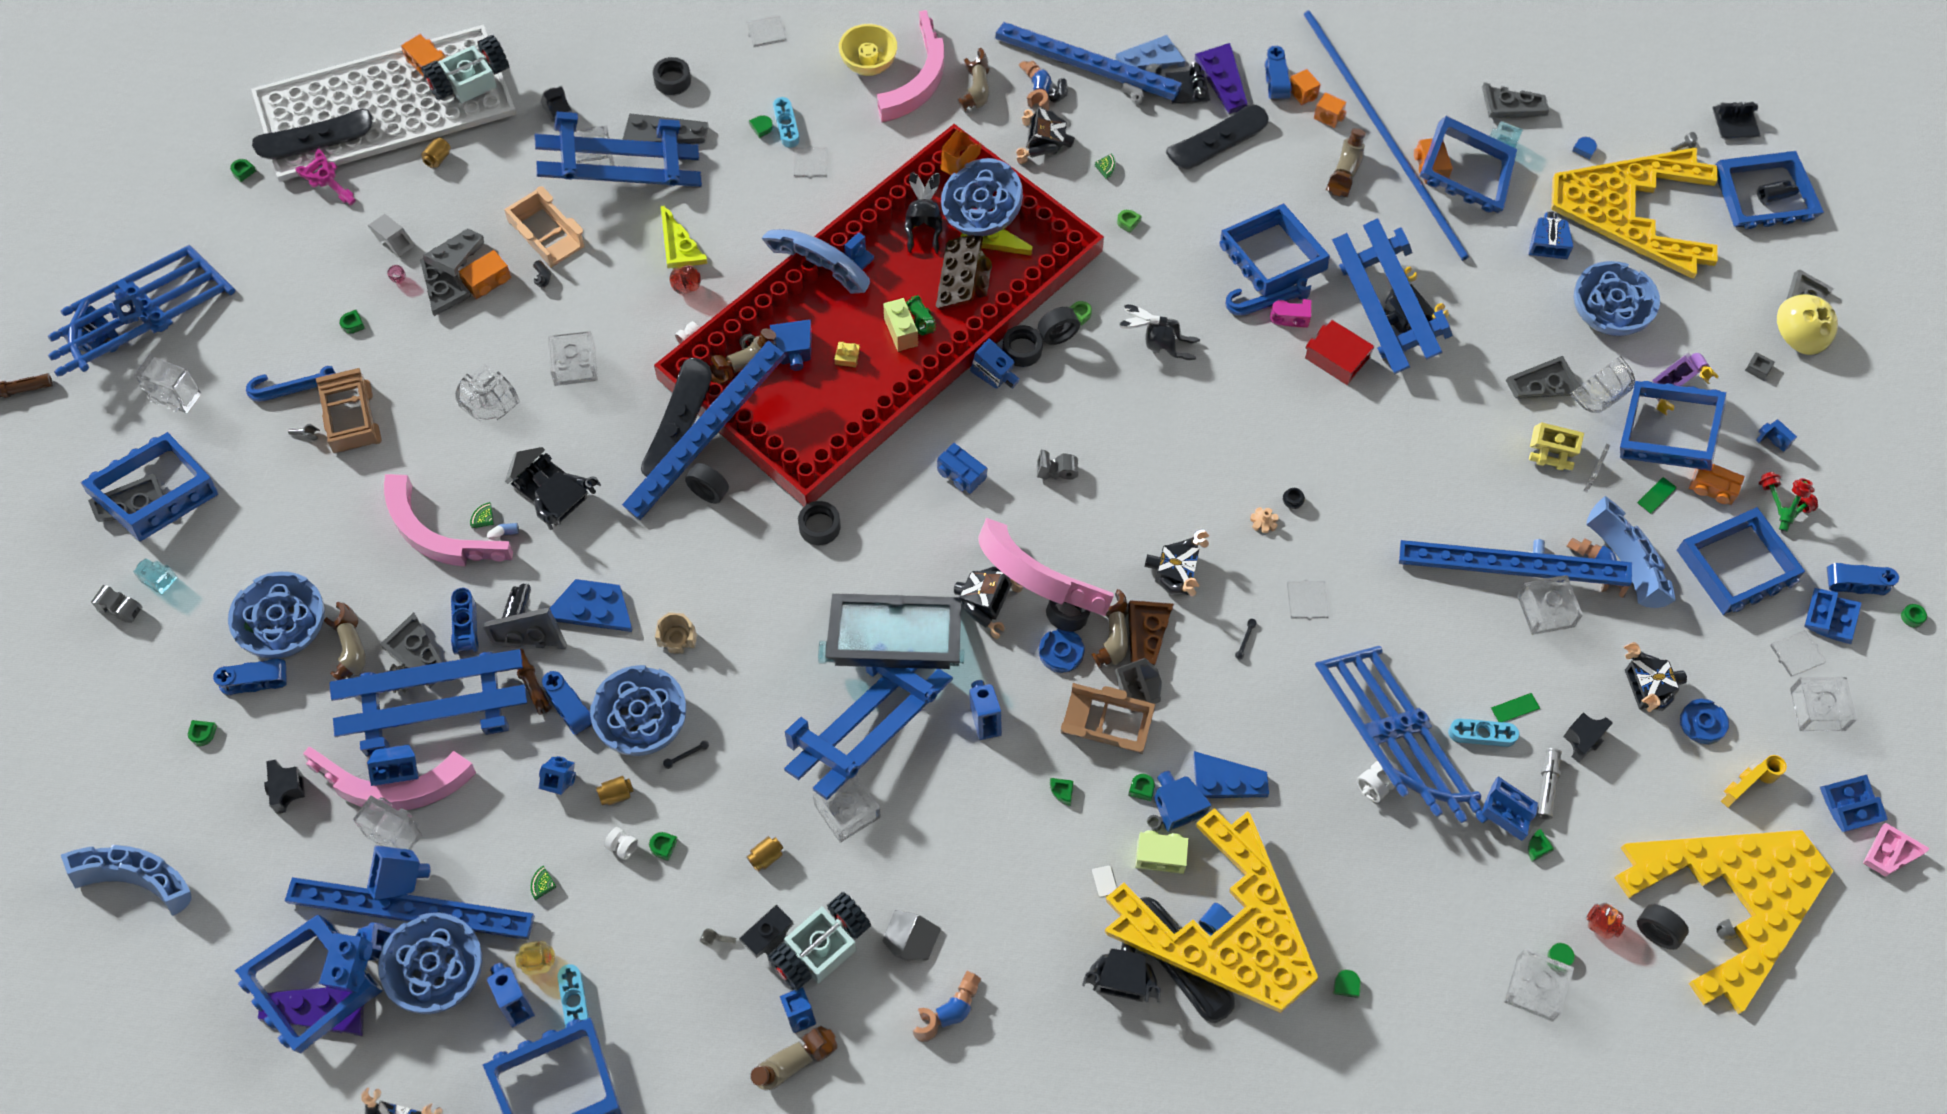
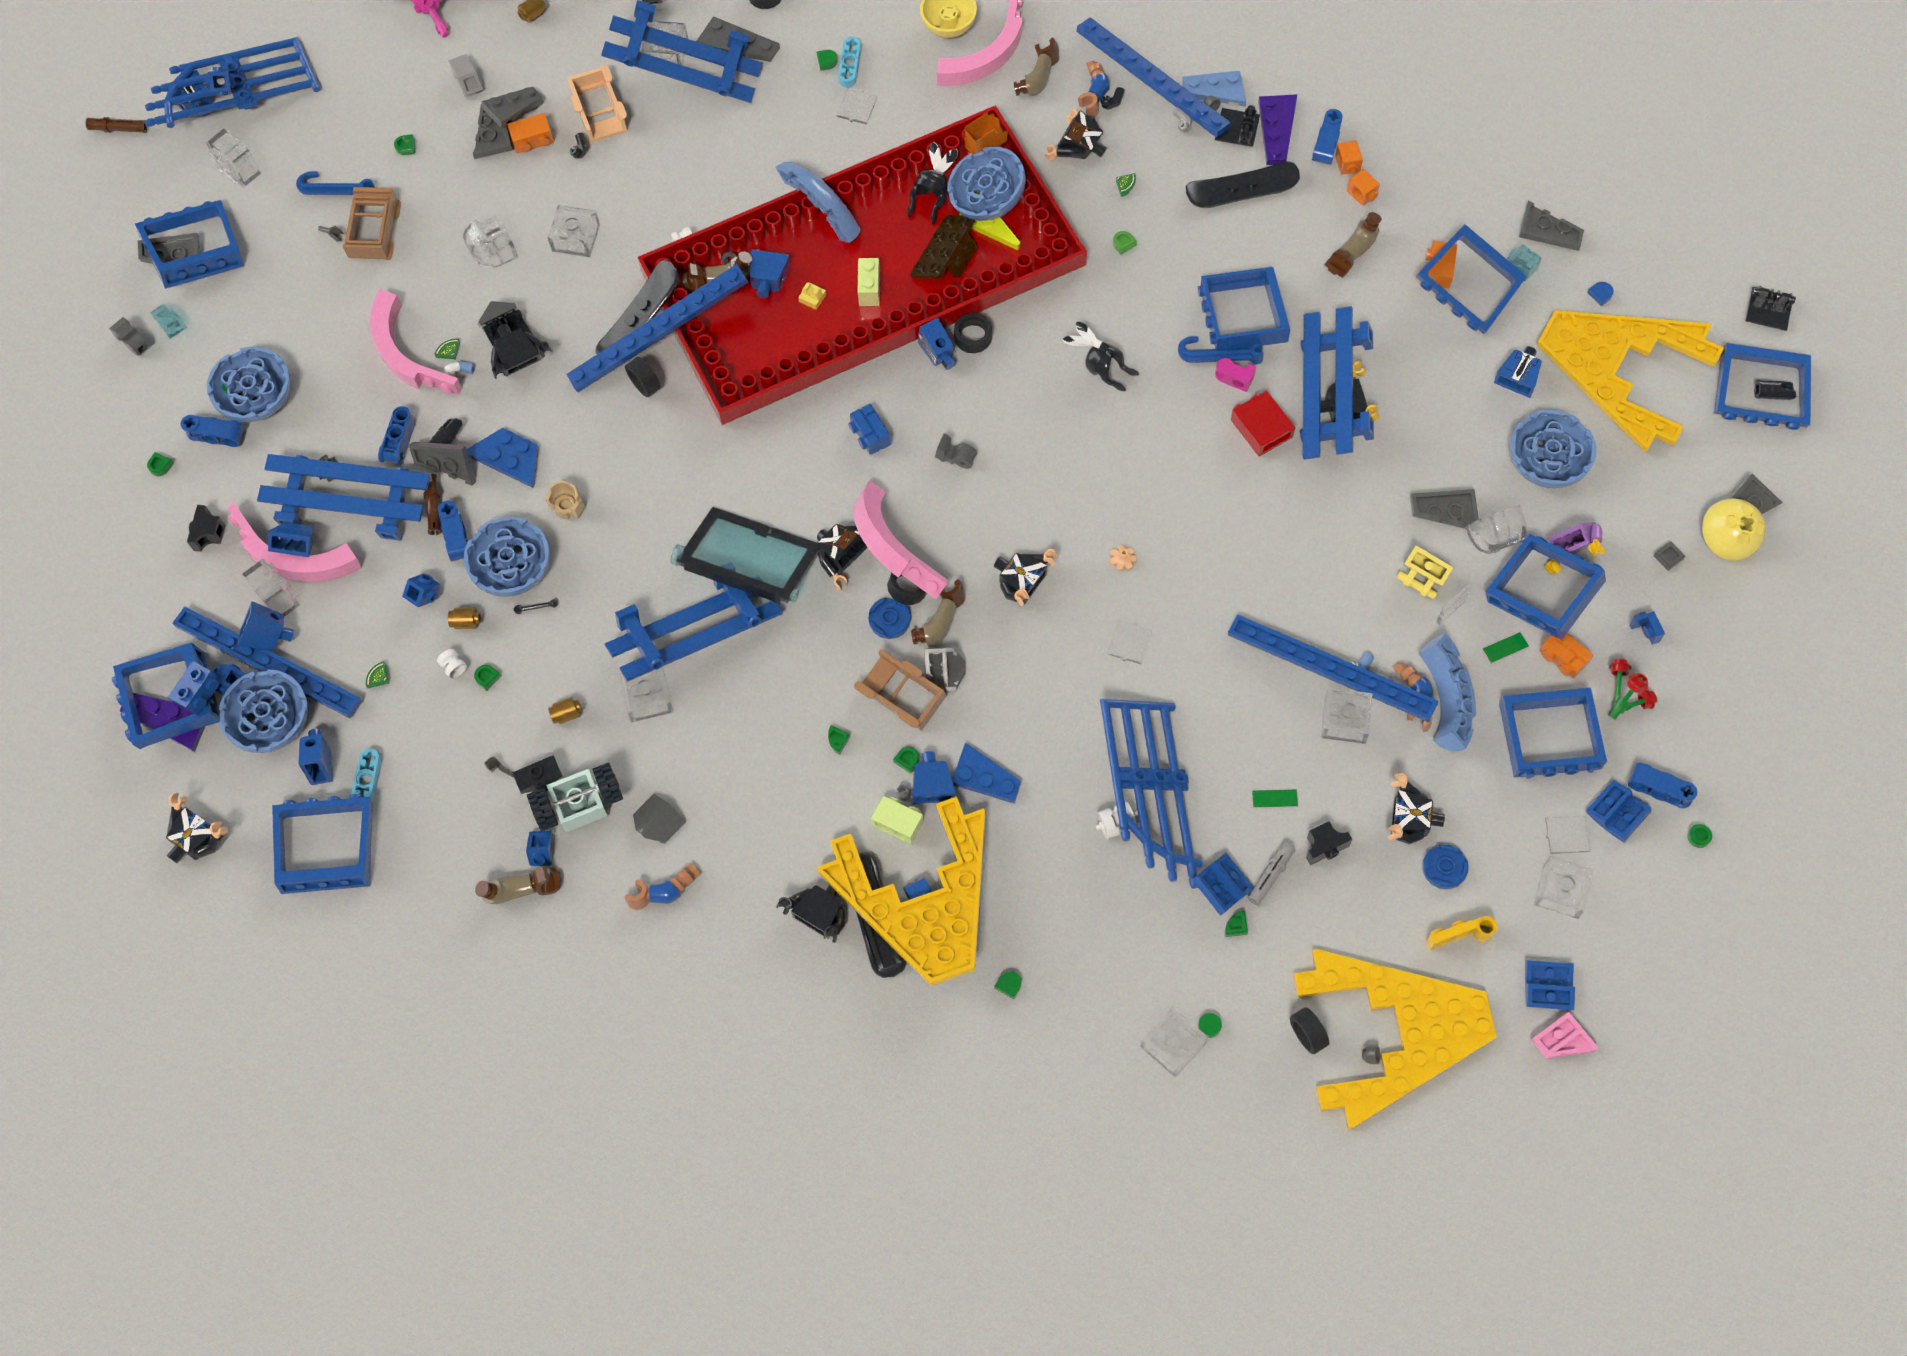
camera: 25 degrees right, 5 degrees up
(130, 866) = (63, 554): medium blue brick -> none
(353, 655) = (298, 437): piece -> none
(398, 271) = (459, 109): clear pink hinge -> none
(411, 645) = (348, 442): dark grey wing -> none
(535, 958) = (347, 734): clear yellow head -> none
(679, 247) = (707, 153): neon yellow wing -> none
(685, 279) = (698, 186): clear red head -> none
(814, 508) = (726, 427): black tyre -> none
(857, 252) = (858, 203): blue bracket -> none
(921, 316) = (891, 279): green connector -> none
(982, 704) = (797, 642): blue torso -> none
(1050, 329) = (1014, 331): black tyre -> none
(1082, 310) = (1040, 316): bright green tile -> none
(1104, 880) = (840, 826): white sticker -> none
(1147, 628) = (972, 623): reddish brown wing -> none
(1251, 624) = (1068, 648): black hinge -> none
(1293, 498) = (1158, 546): black plate -> none
(1387, 137) = (1408, 226): blue piece -> none
(1500, 740) = (1251, 811): medium azure beam -> none
(1605, 921) = (1262, 1009): clear red head -> none
(1690, 141) = (1711, 316): dark grey hand -> none

